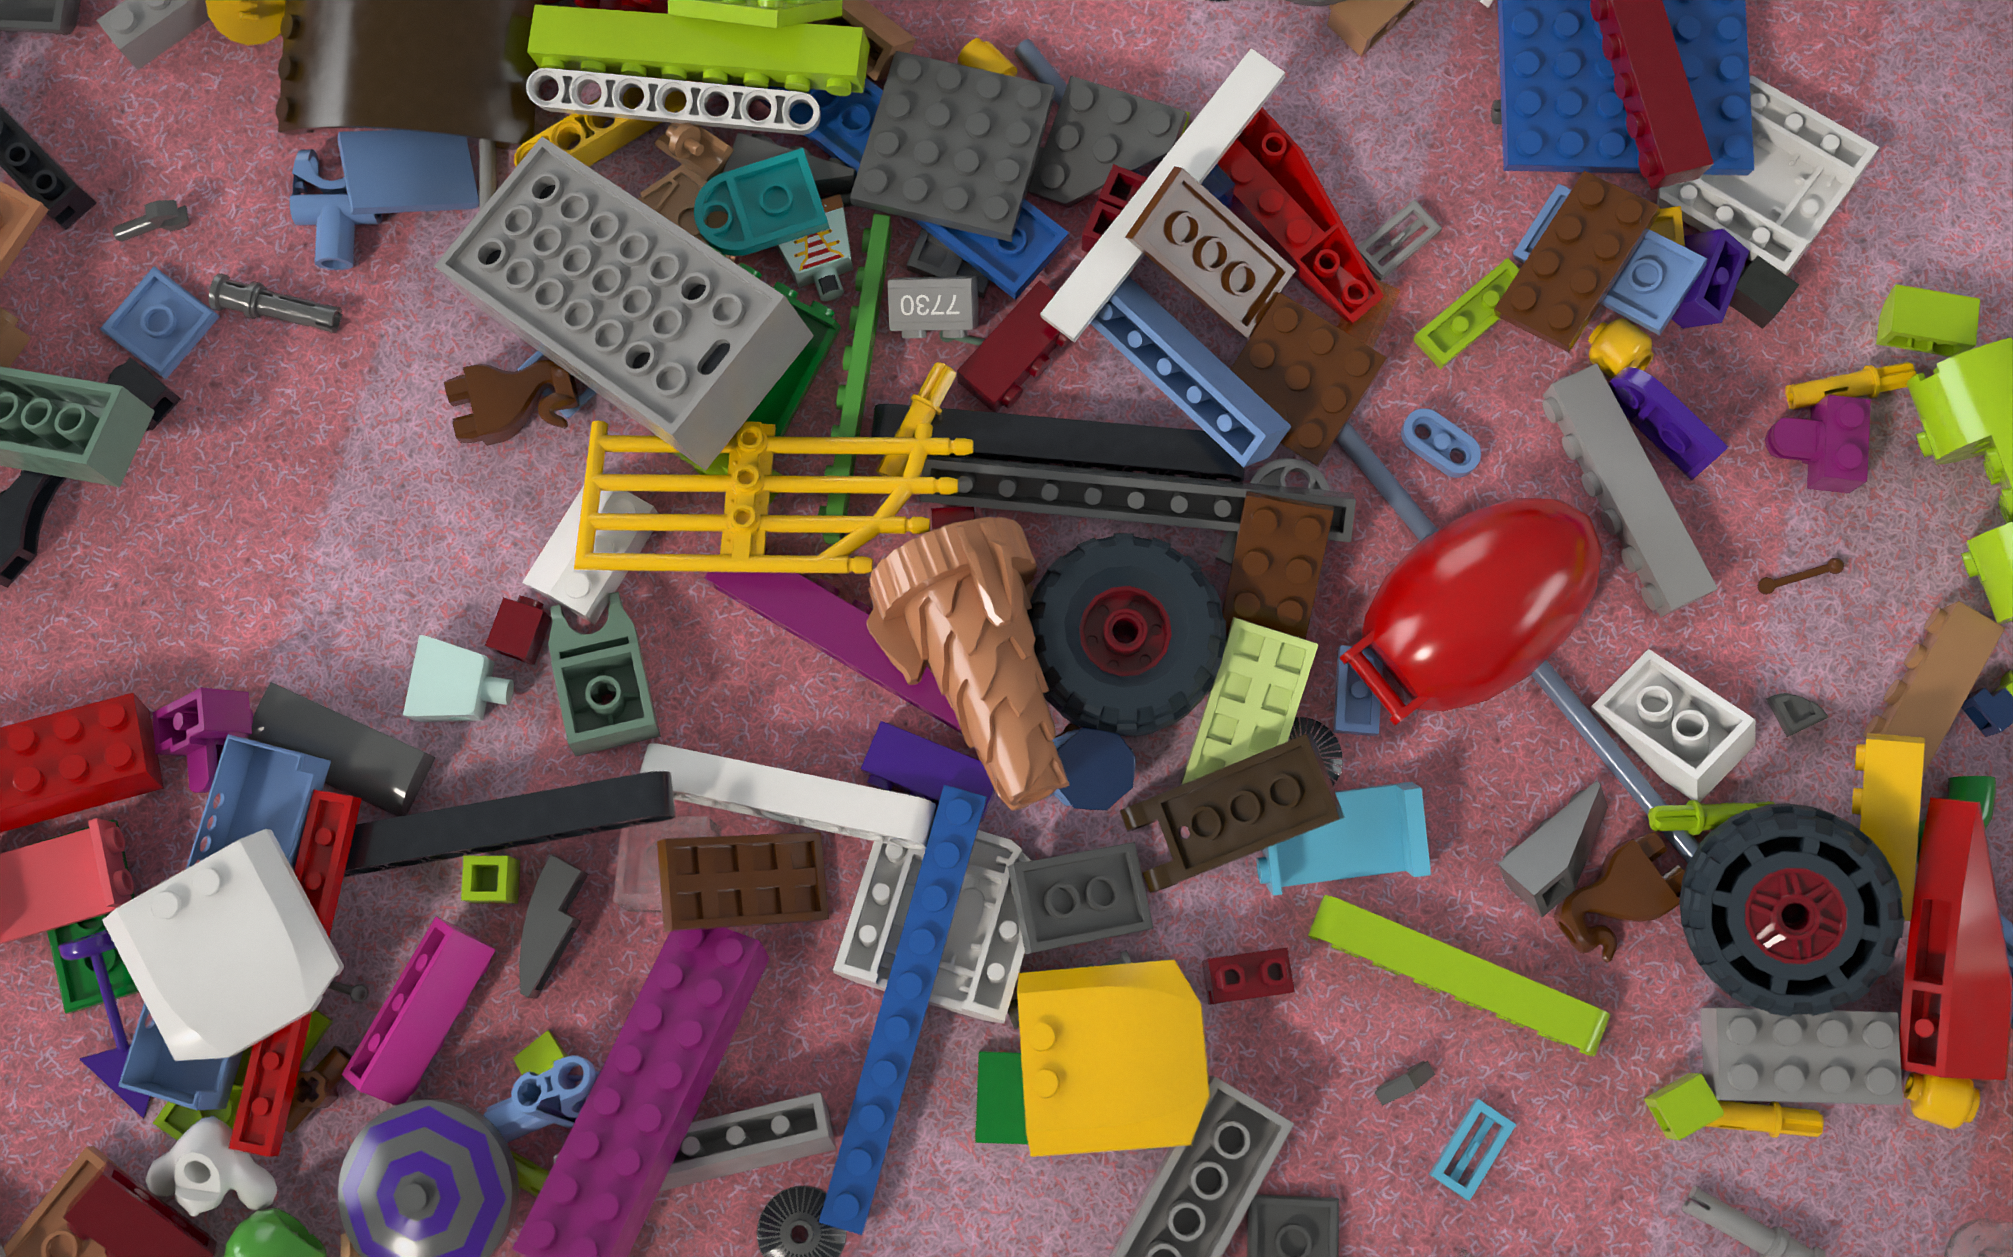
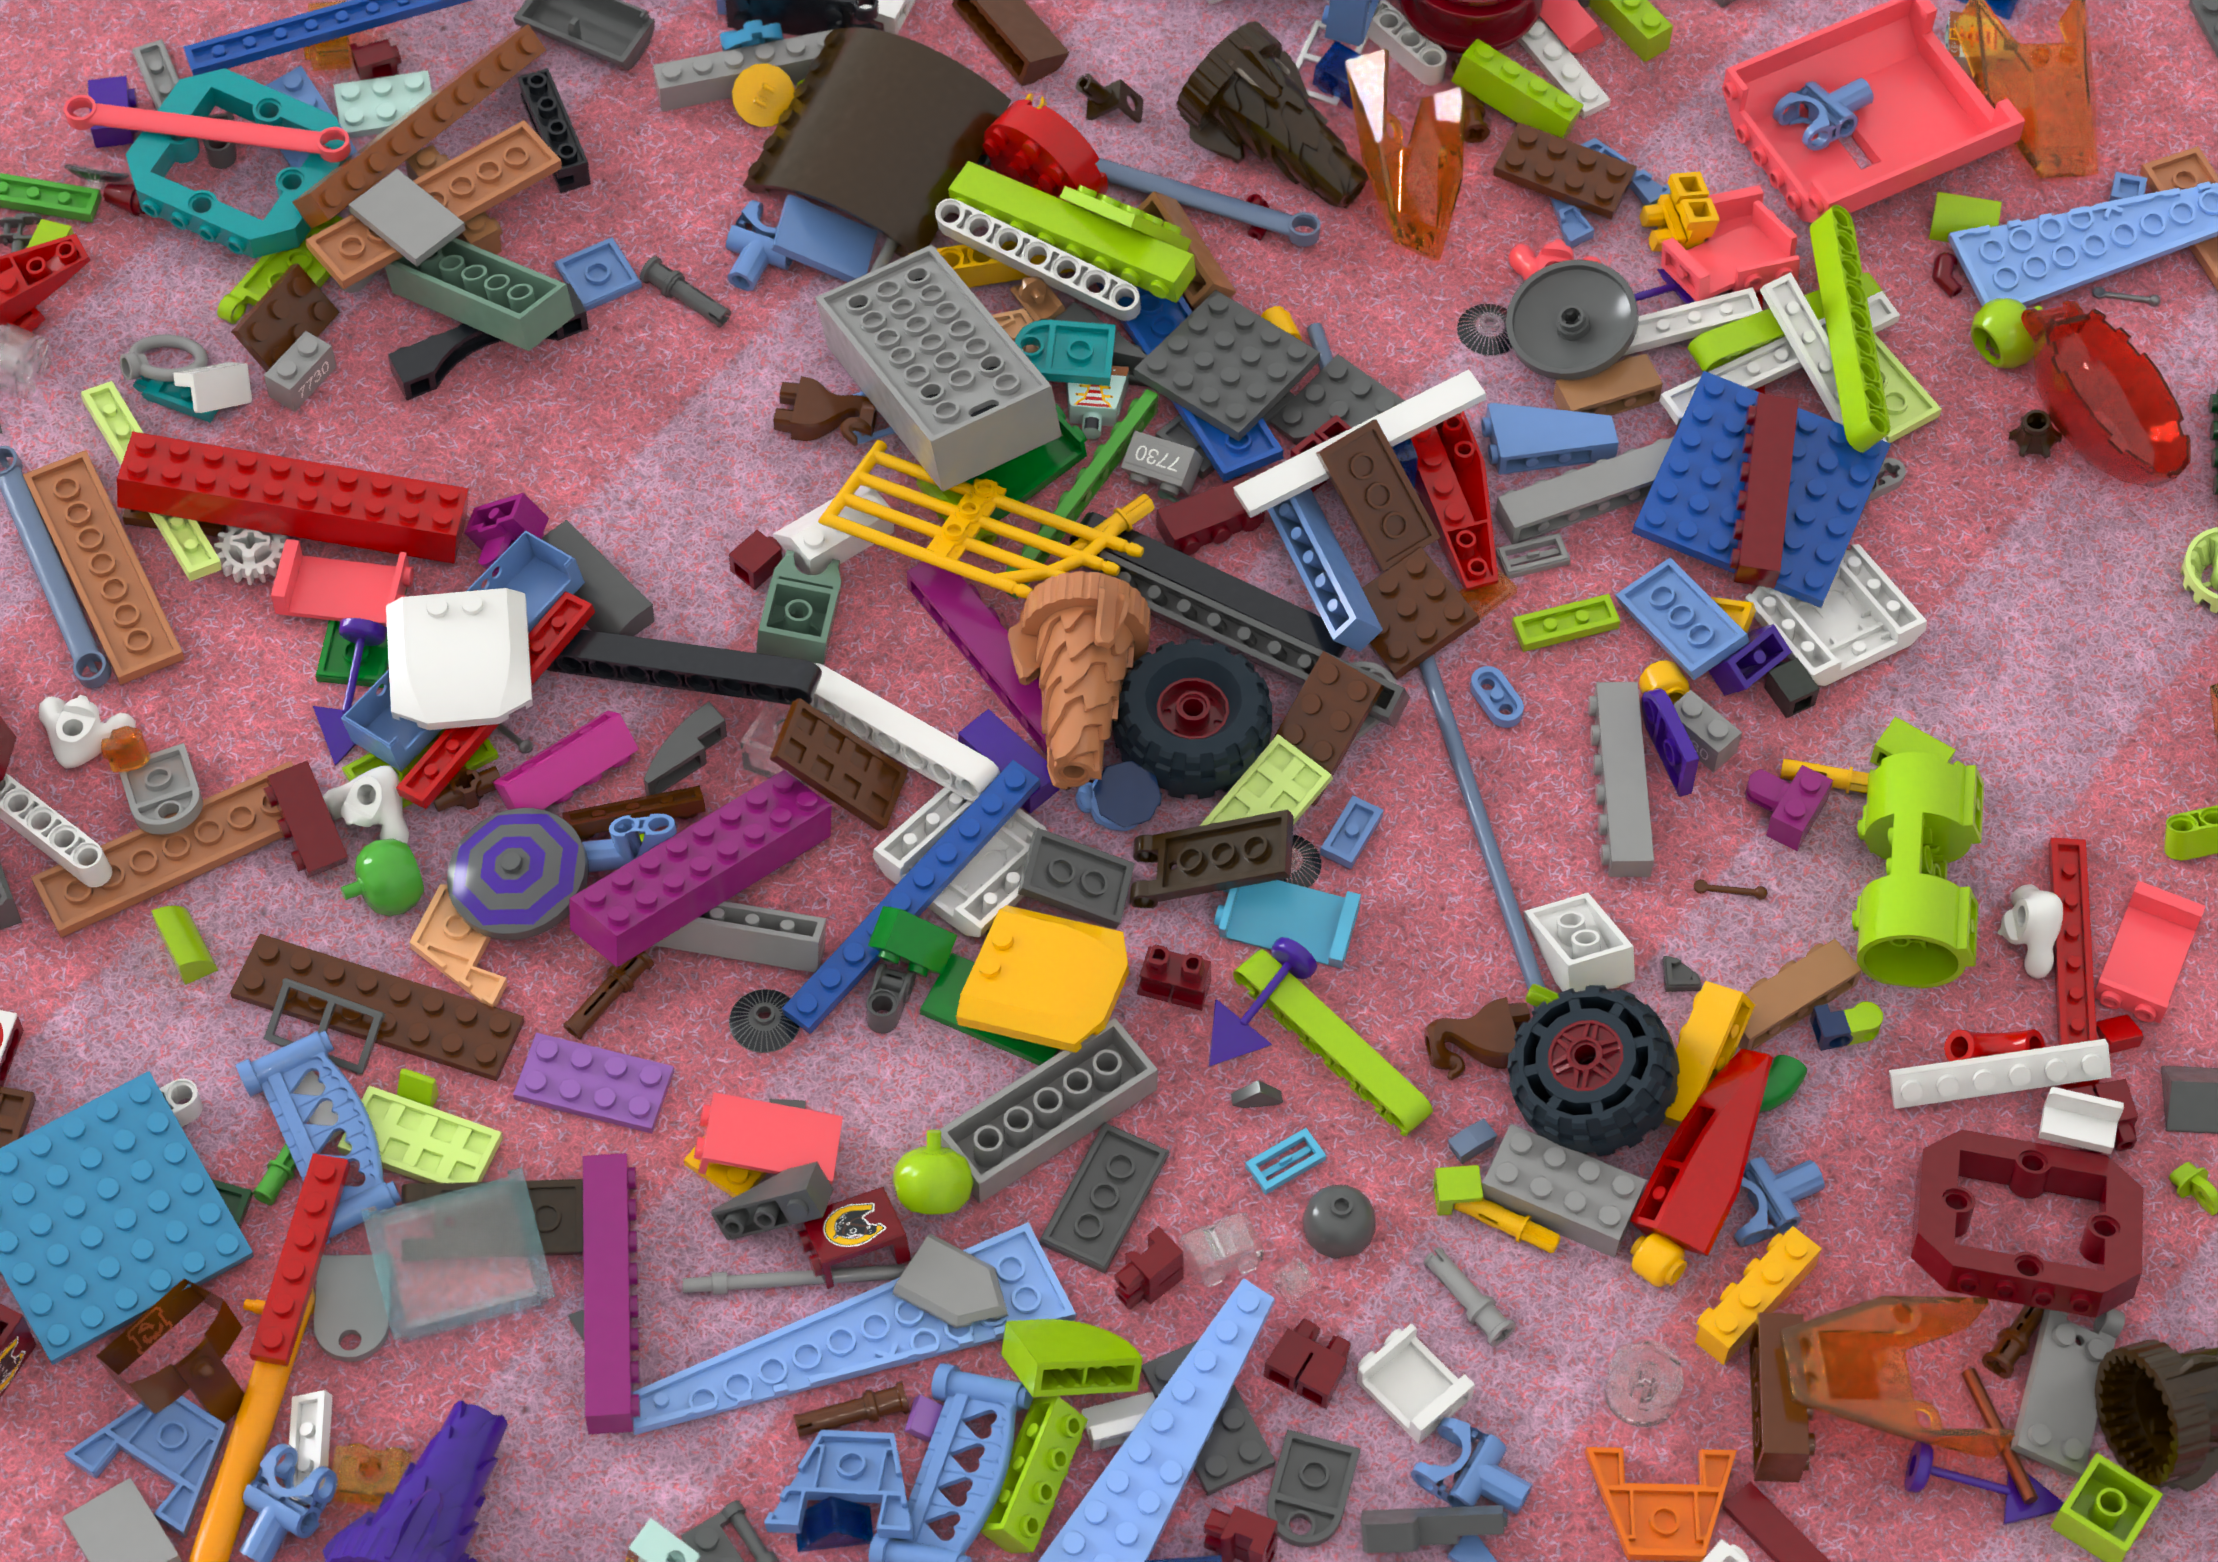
camera: 20 degrees right, 20 degrees down
(158, 215) = (635, 205): dark grey bar -> none
(452, 684) = (691, 574): light aqua torso -> none
(490, 880) = (658, 703): lime brick -> none
(526, 1033) = (678, 803): none -> reddish brown plate
(931, 1140) = (890, 993): none -> dark grey piece
(933, 1075) = (912, 941): none -> green brick
(1348, 83) = (1546, 438): none -> medium blue slope
(1352, 1027) = (1233, 1035): none -> dark purple piece
(1422, 136) = (1580, 493): none -> light grey brick
(1479, 605) = (1469, 804): red windscreen -> none
(1553, 858) = (1448, 987): slope -> none
(1567, 1203) = (1339, 1221): none -> dark grey cylinder
(1577, 261) = (1653, 607): reddish brown plate -> none
(1668, 1031) = (1472, 1140): none -> sand blue piece
(1699, 388) = (1709, 731): none -> light grey brick

